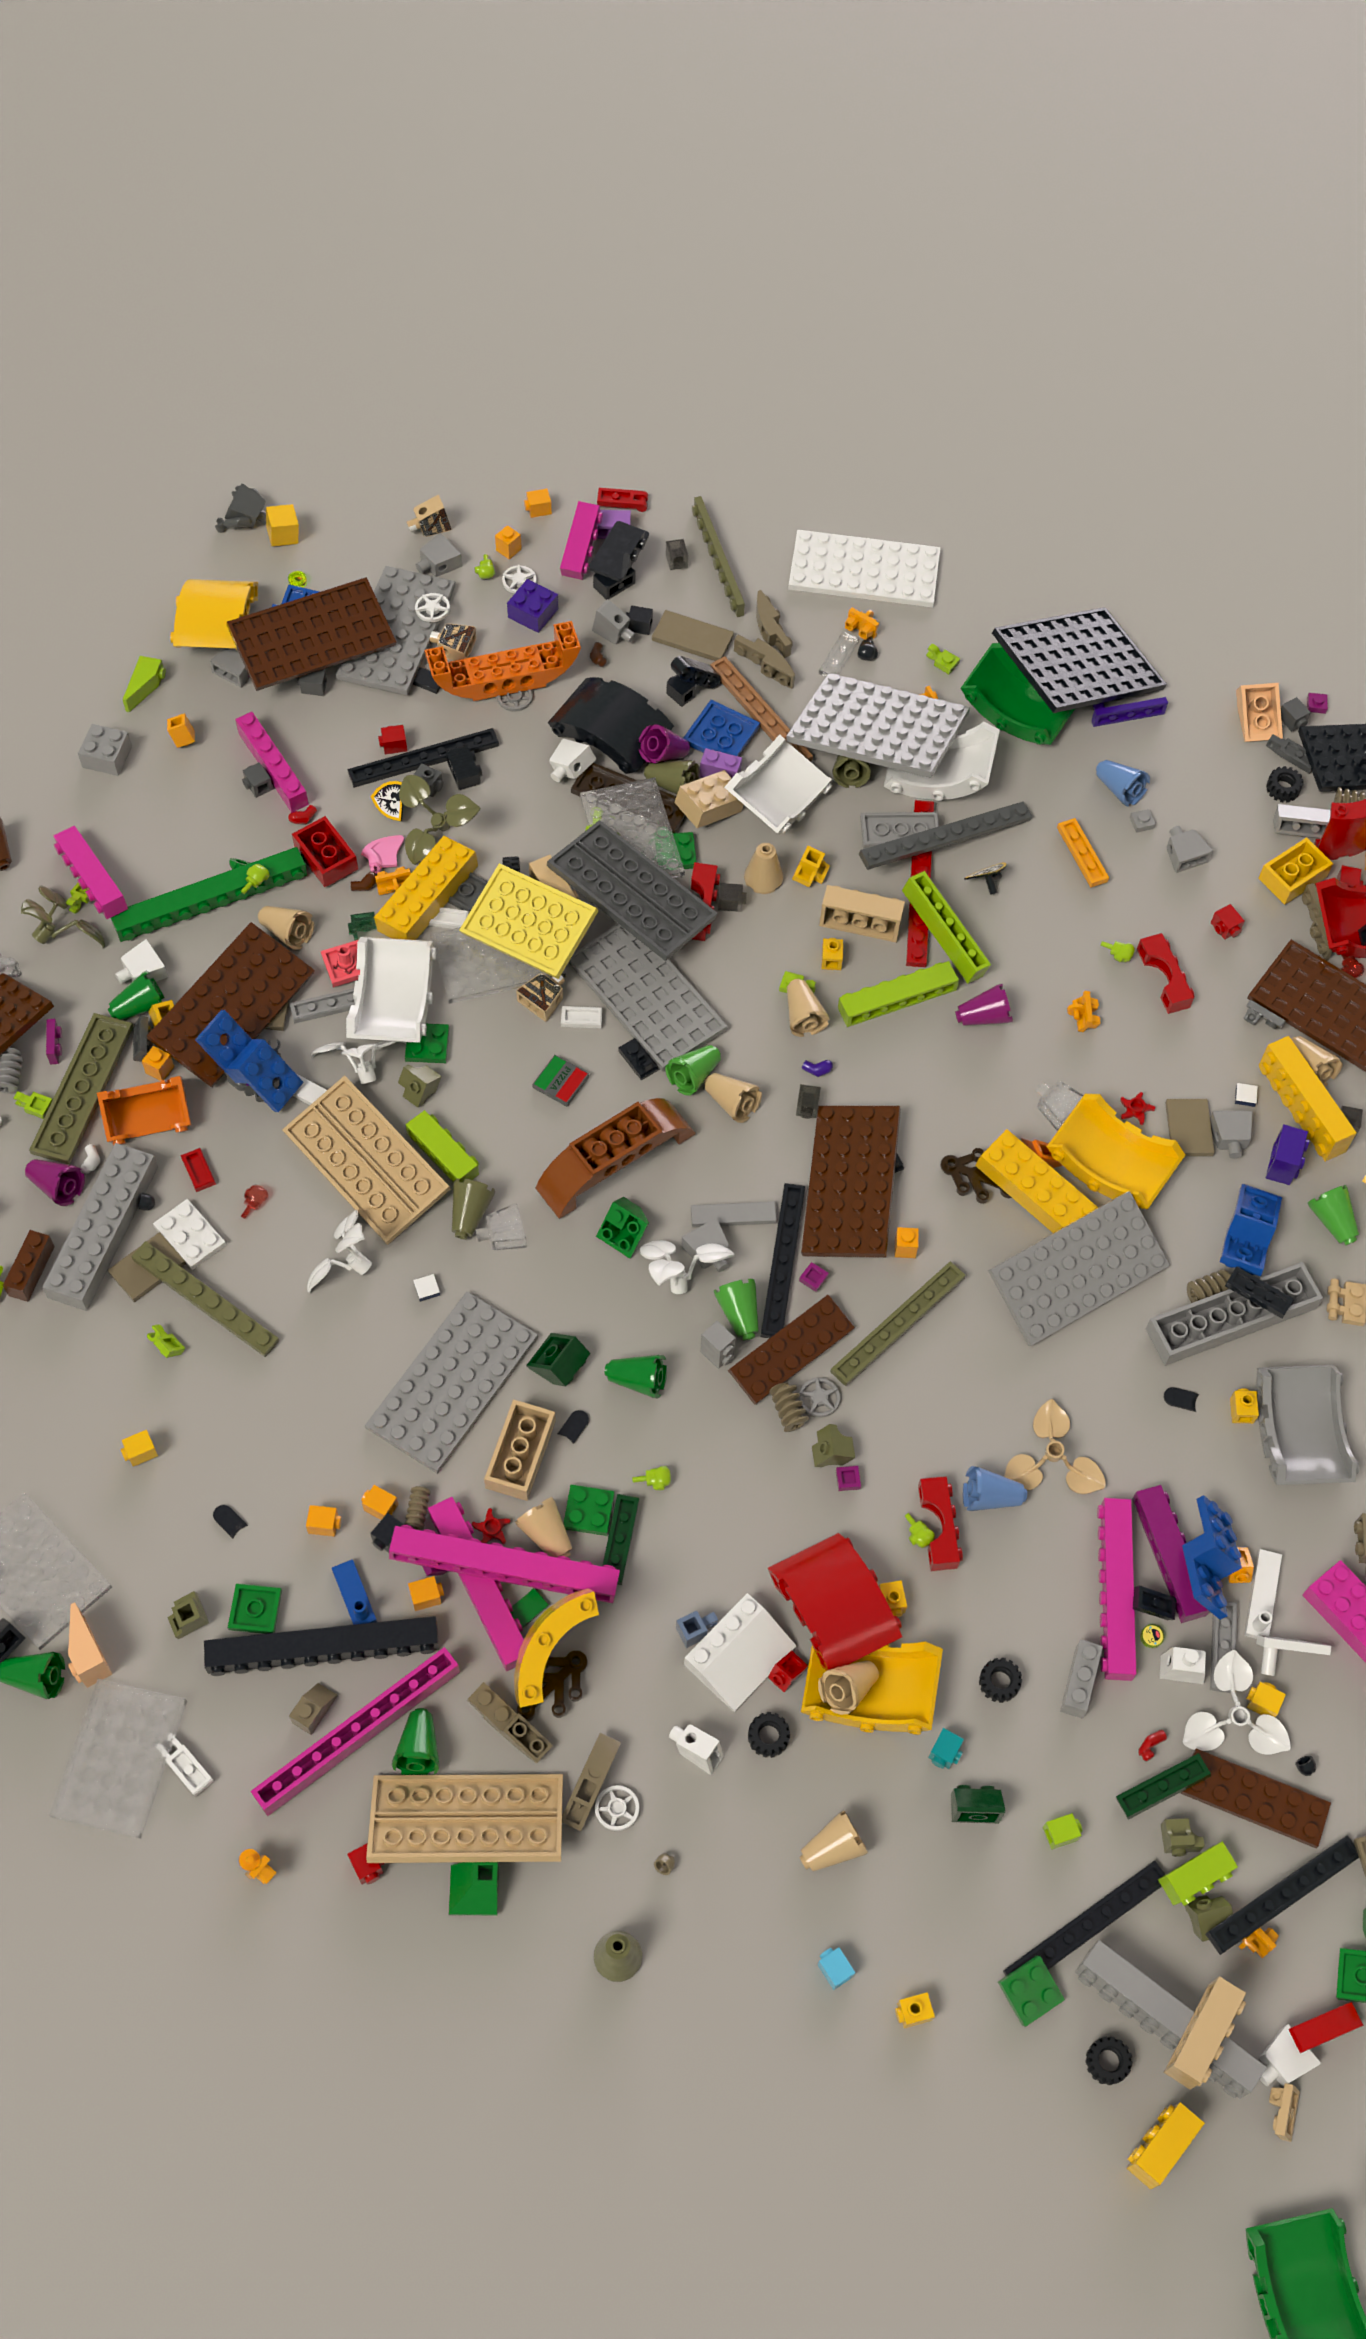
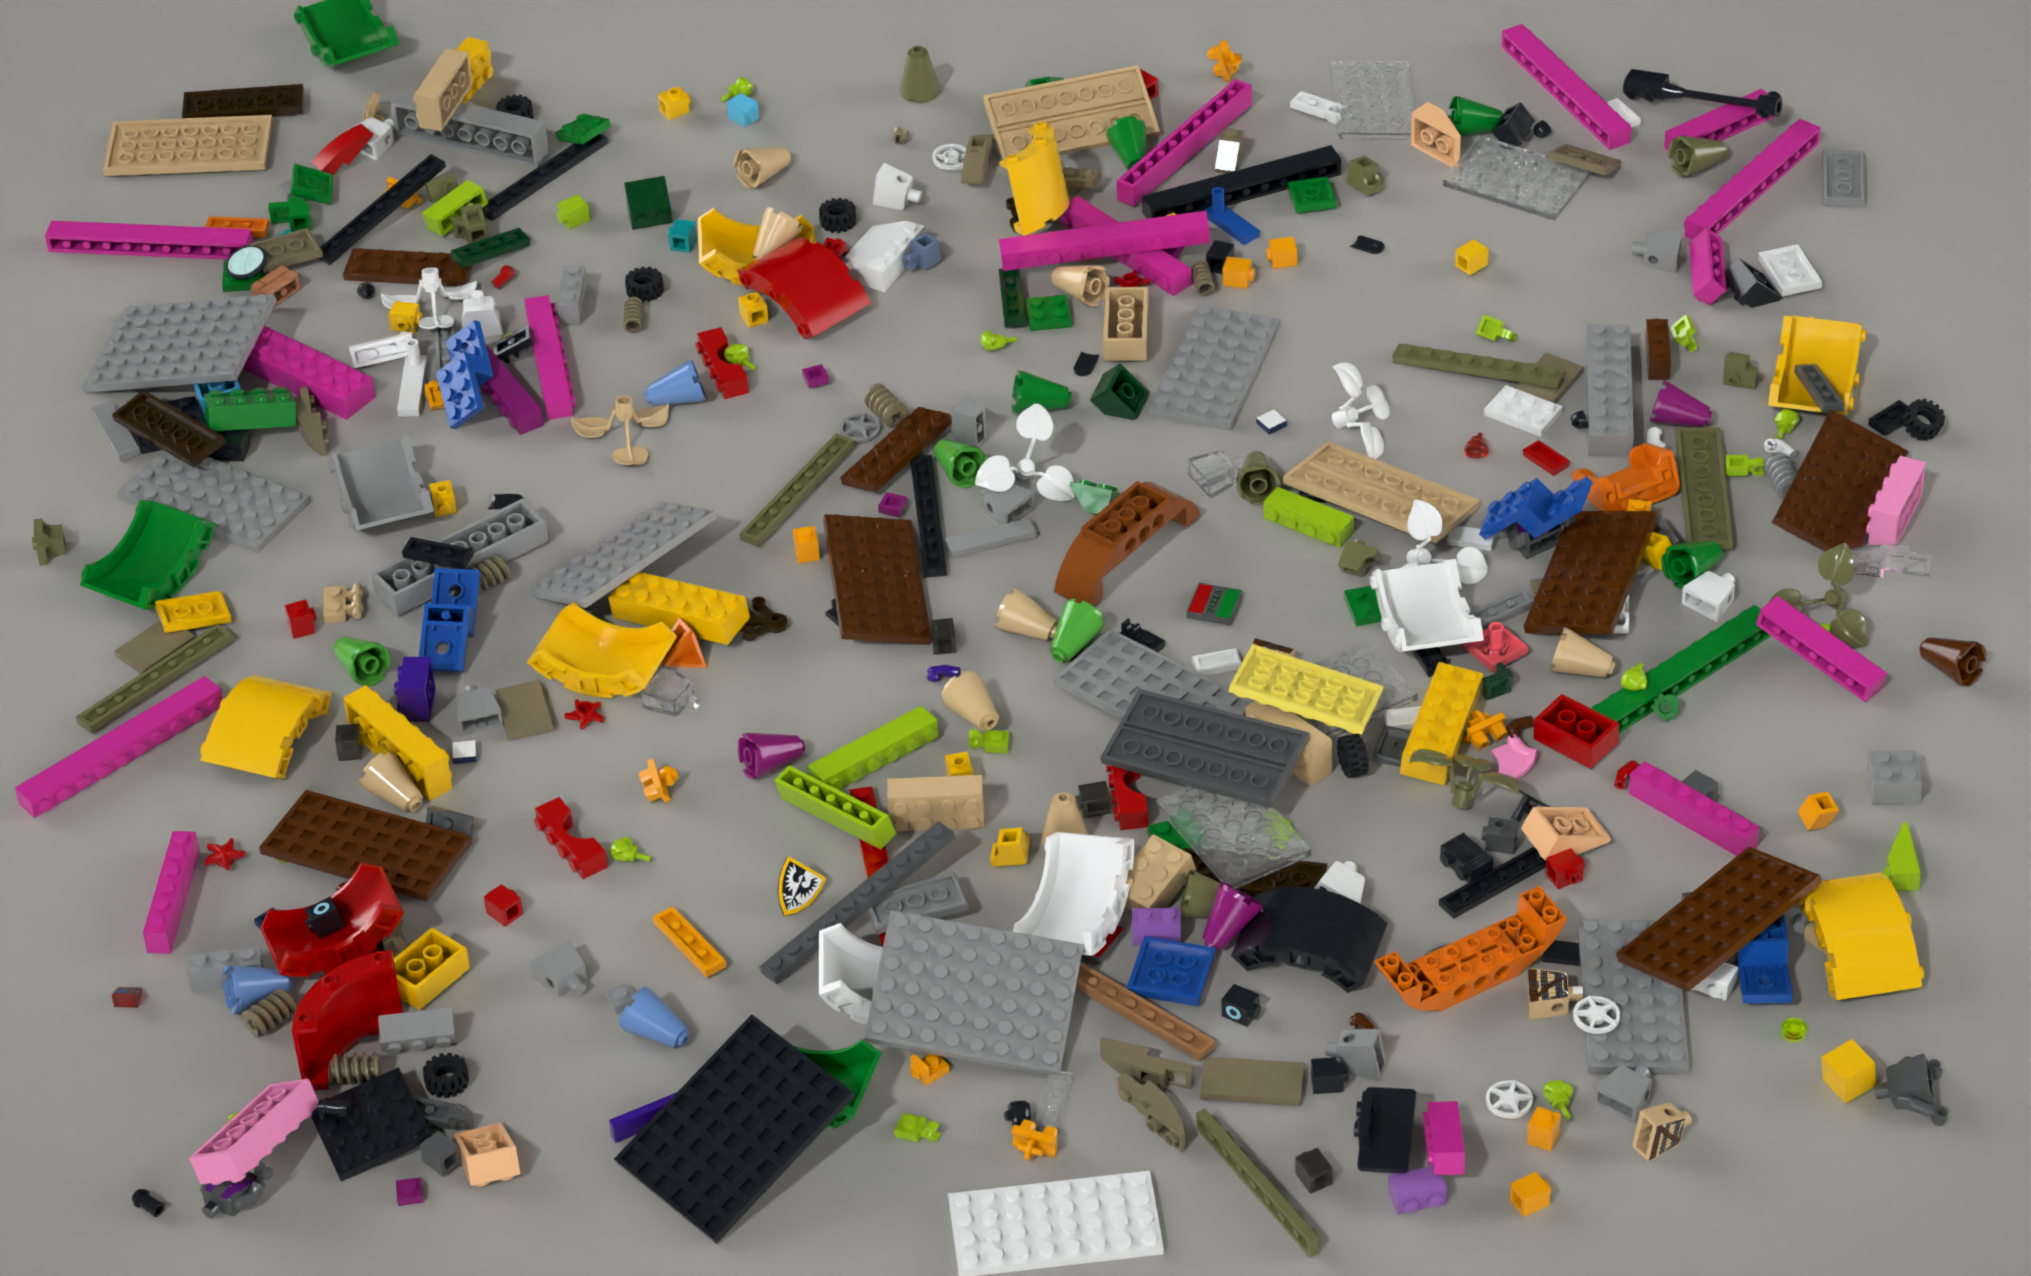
camera: 170 degrees right, 20 degrees down
(53, 1048) = (1758, 513): magenta plate -> none
(380, 759) = (1563, 828): none -> light nougat slope
(532, 605) = (1472, 1057): dark purple brick -> none
(622, 498) = (1419, 1232): red plate -> none
(695, 672) = (1226, 1007): black beam -> none
(832, 1447) = (834, 385): olive brick -> none
(832, 2018) = (741, 86): none -> lime piece
(1019, 1631) = (633, 315): none -> dark tan piece

